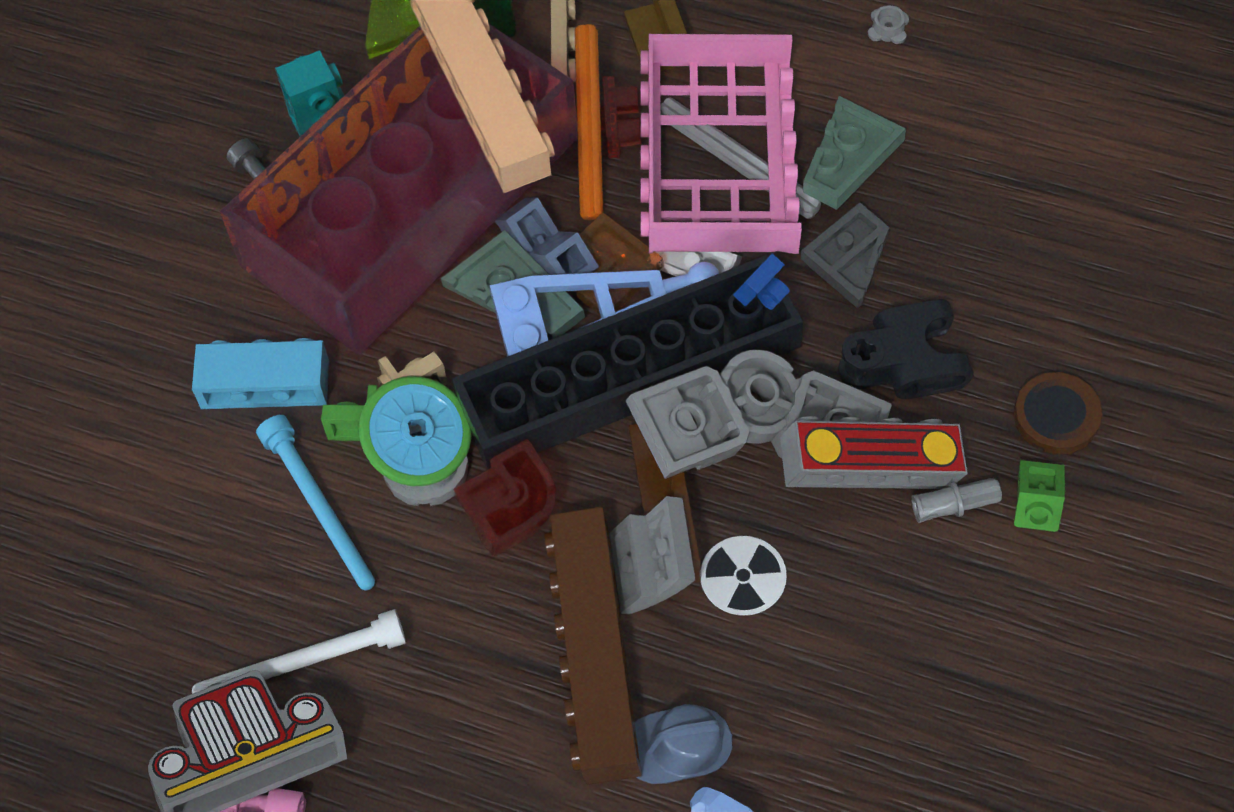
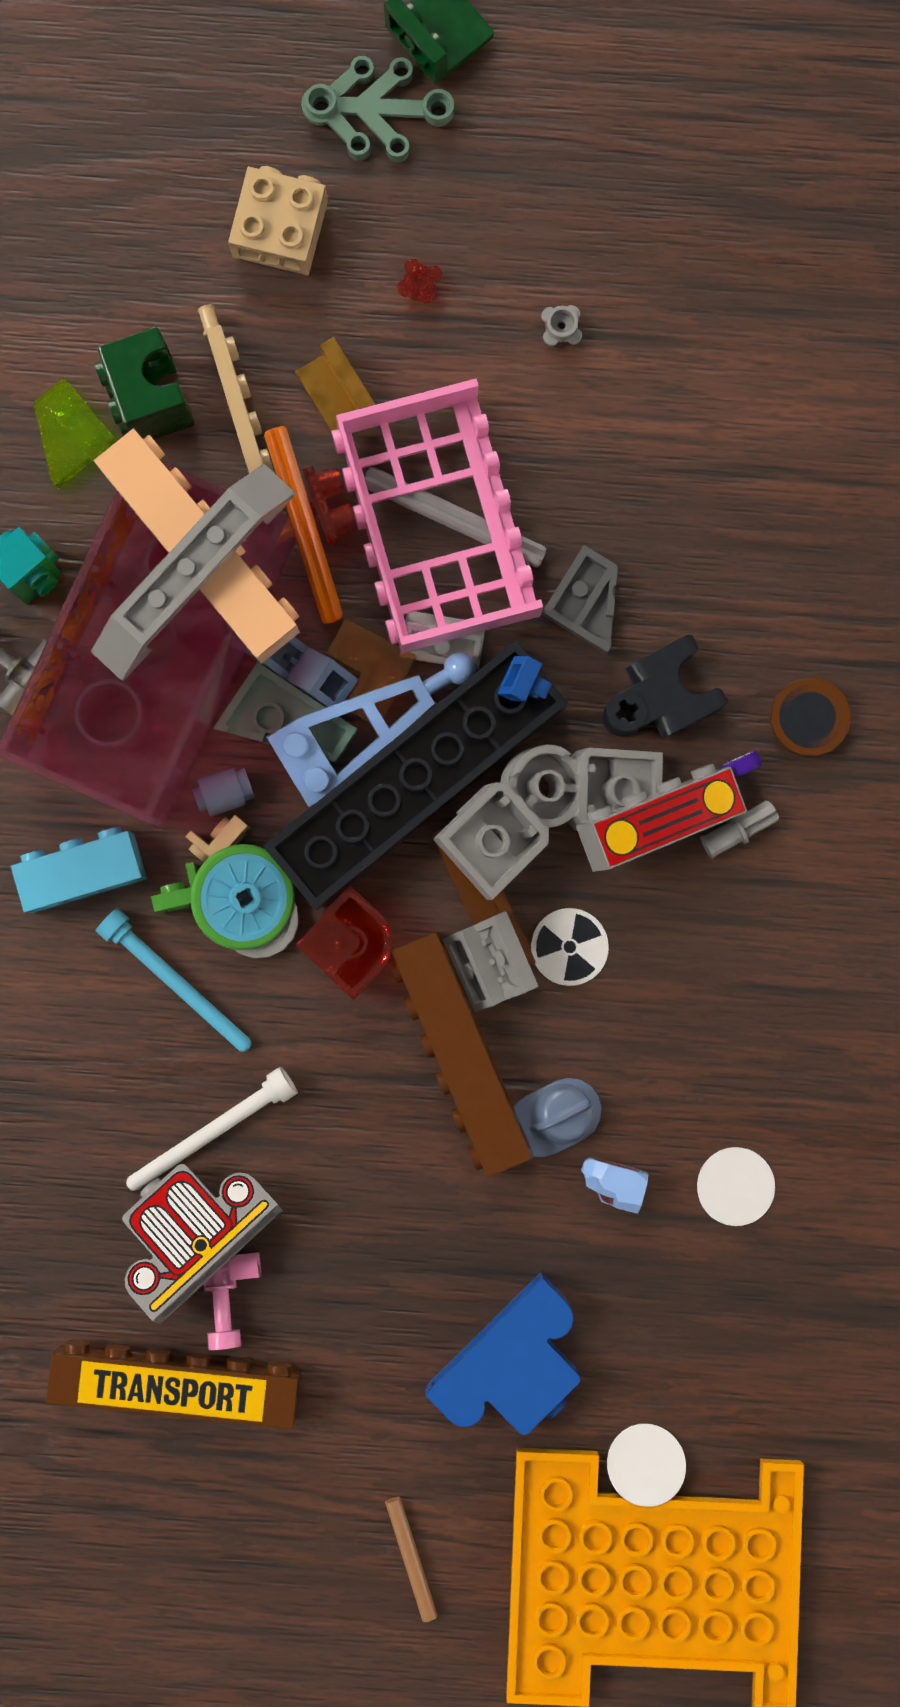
camera: 20 degrees left, 25 degrees up
(430, 335) = (223, 791): none -> sand blue brick
(454, 79) = (188, 568): none -> light grey slope
(850, 152) = (561, 488): sand green wing -> none
(977, 435) = (744, 763): none -> dark purple tile
(1040, 495) = (811, 805): bright green bracket -> none

